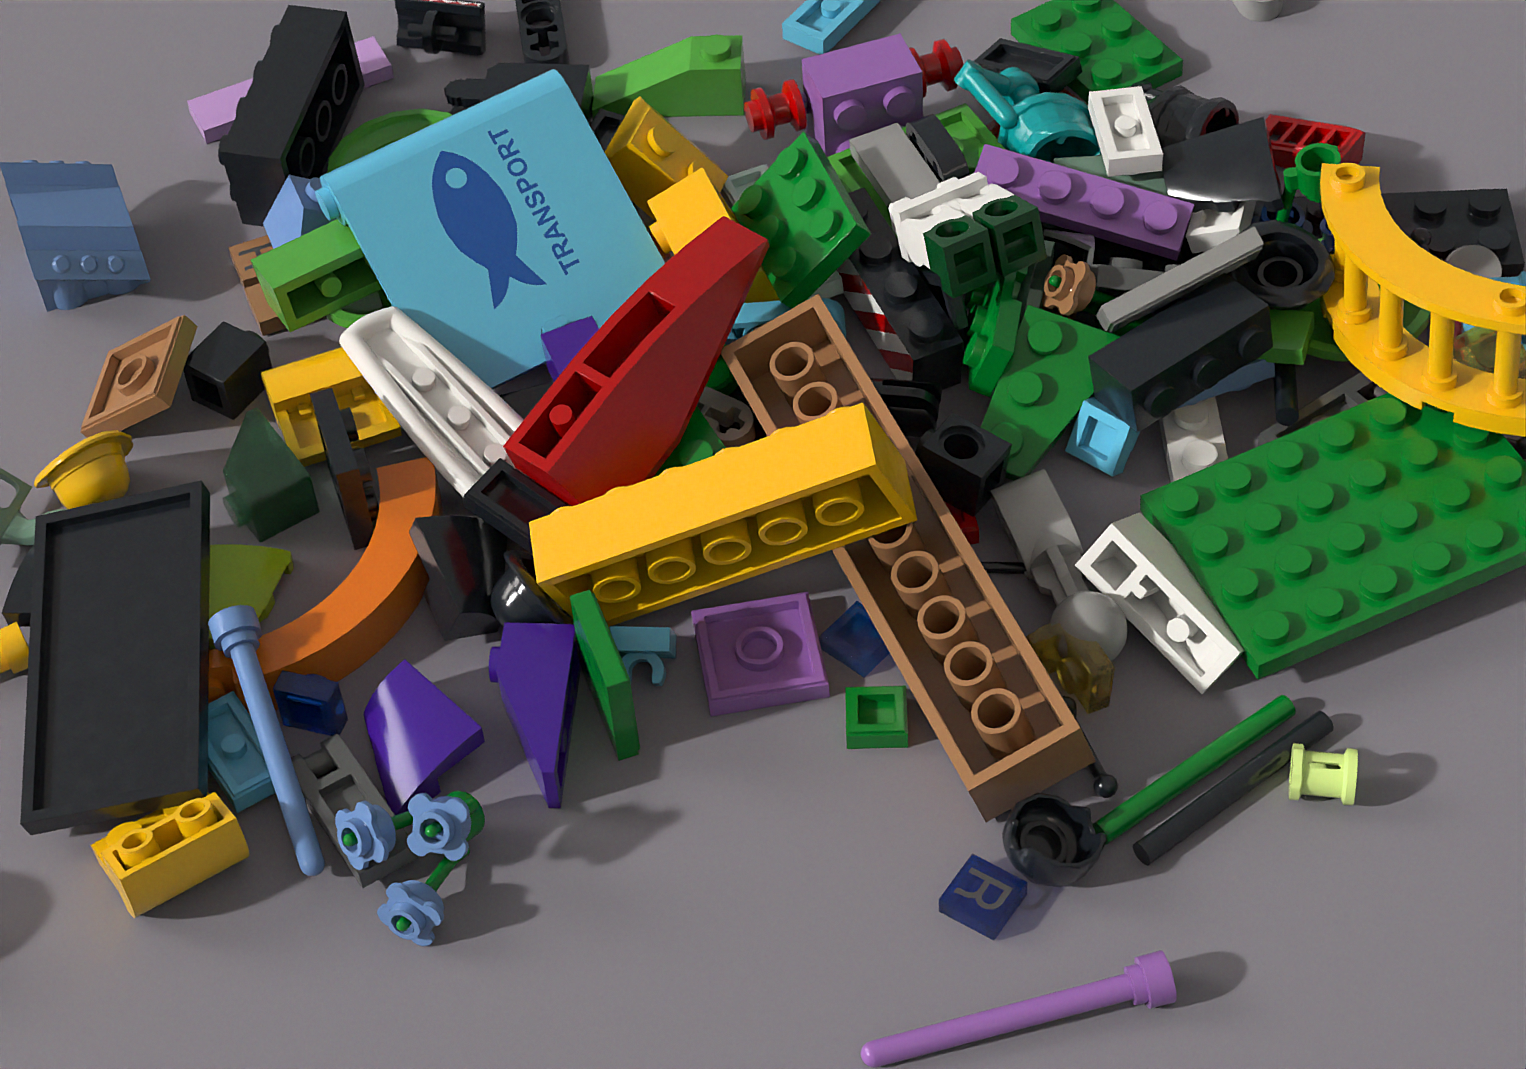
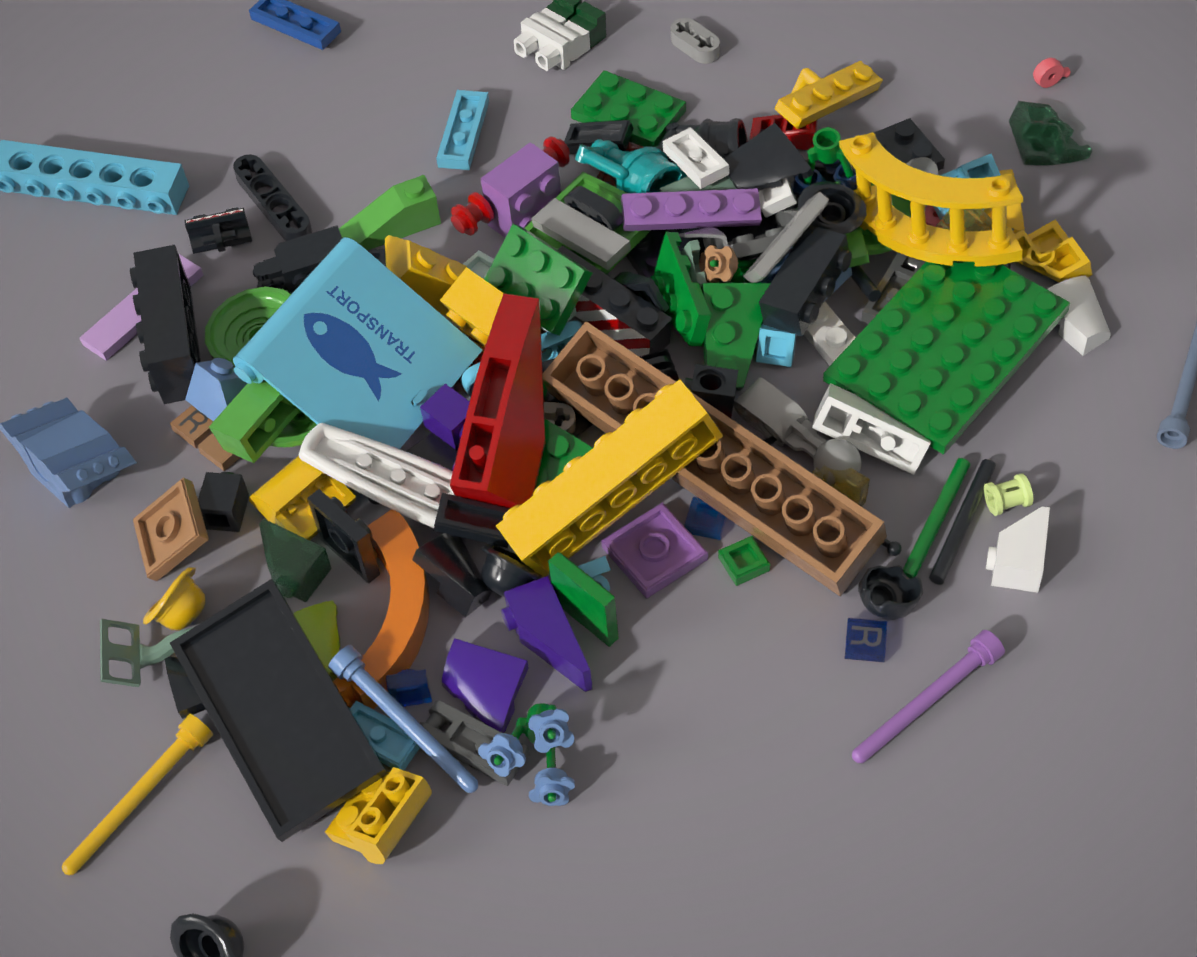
camera: 25 degrees left, 5 degrees up
(968, 232) = (650, 251): dark green hips -> none
(1290, 863) = (1020, 553): none -> white slope
(1389, 113) = (818, 96): none -> yellow plate

